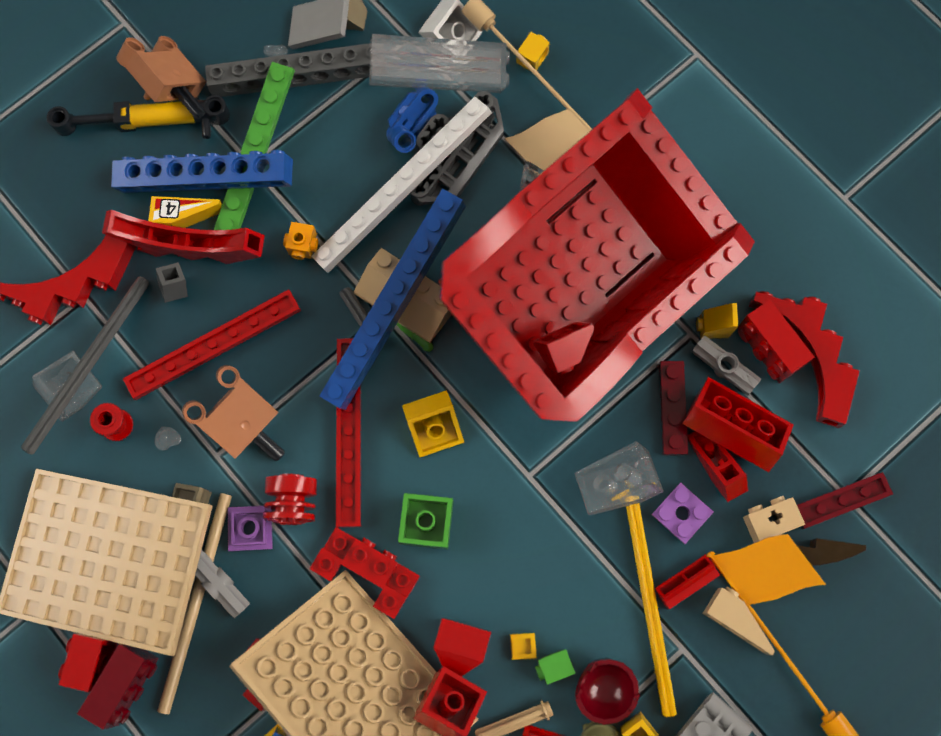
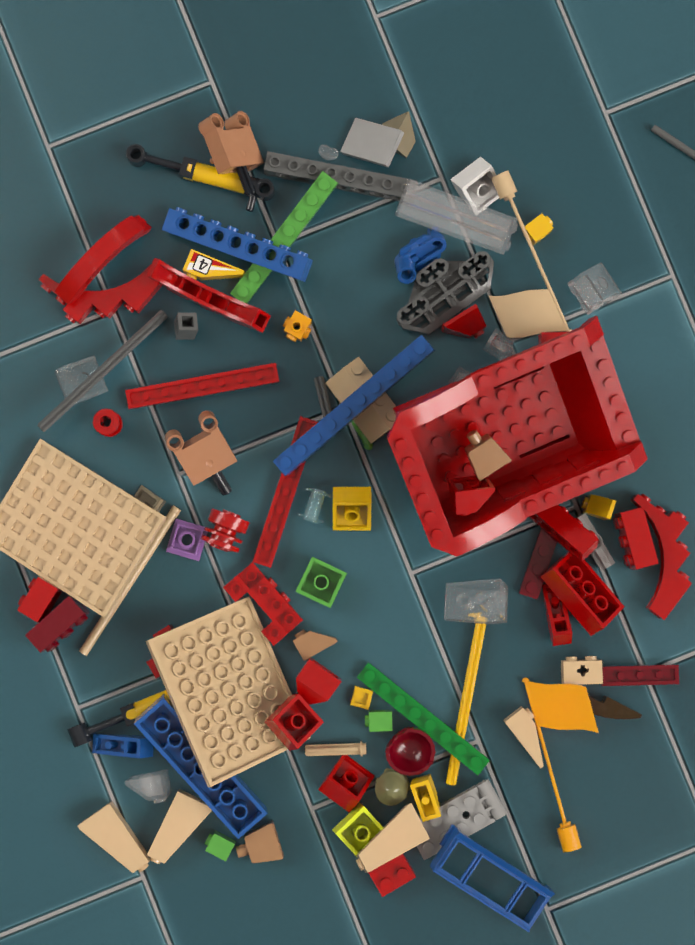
camera: 15 degrees right, 10 degrees up
(41, 233) = (99, 256): none -> red arch
(167, 437) = (144, 447): clear piece -> none
(220, 586) = (153, 578): light grey piece -> none
(387, 434) = (314, 505): none -> clear light blue hose
(401, 184) = (392, 308): white plate -> none
(440, 599) = (312, 642): none -> medium nougat slope
(489, 173) = (466, 324): none -> red slope
(565, 295) = (484, 454): none -> medium nougat torso
(608, 645) = (423, 718): none -> green plate
(613, 87) = (594, 288): none -> clear slope
(687, 582) = (499, 694): red piece -> none
(690, 359) = (567, 531): none -> red brick
(696, 509) = (527, 647): medium lavender piece -> none

